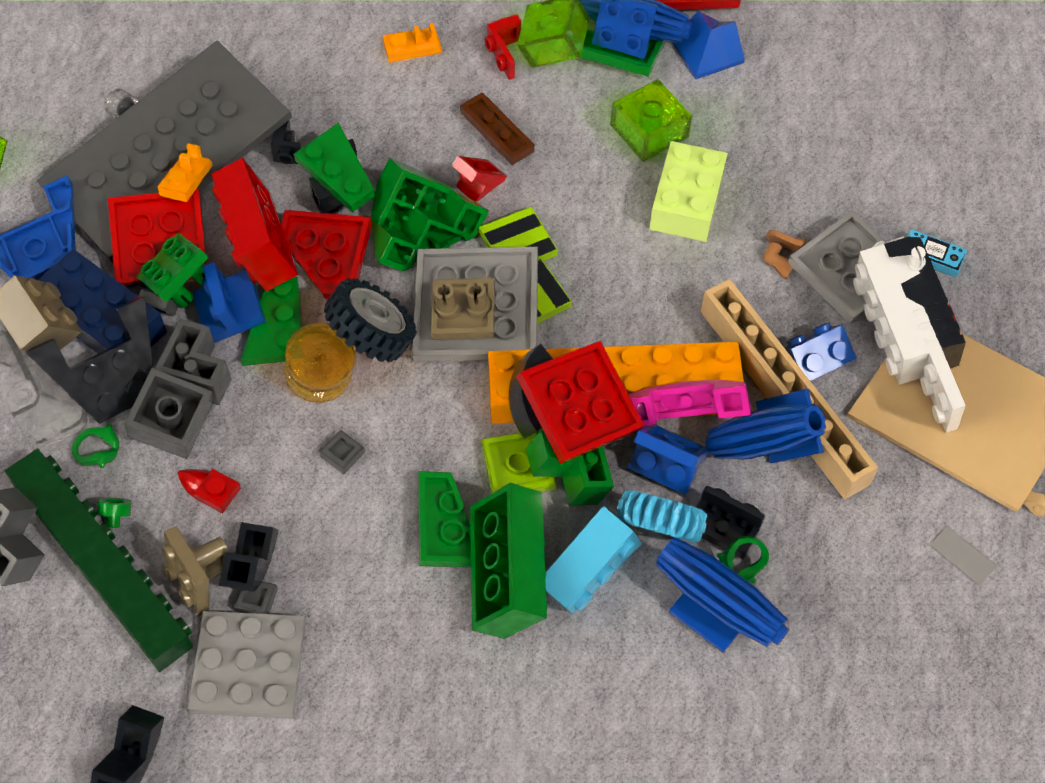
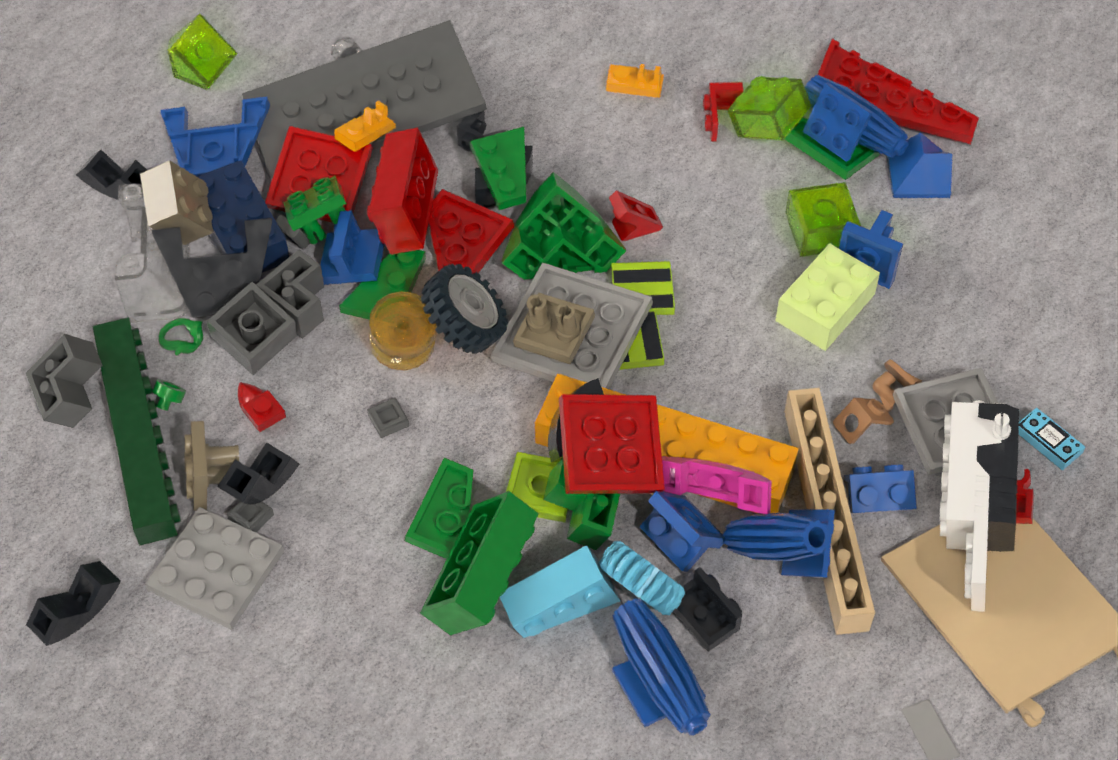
camera: 25 degrees right, 5 degrees down
(497, 128) = (674, 181): reddish brown plate -> none
(712, 130) = (874, 247): none -> blue bracket
(749, 571) = (706, 665): green piece -> none
(777, 286) = (867, 411): none -> medium nougat bracket

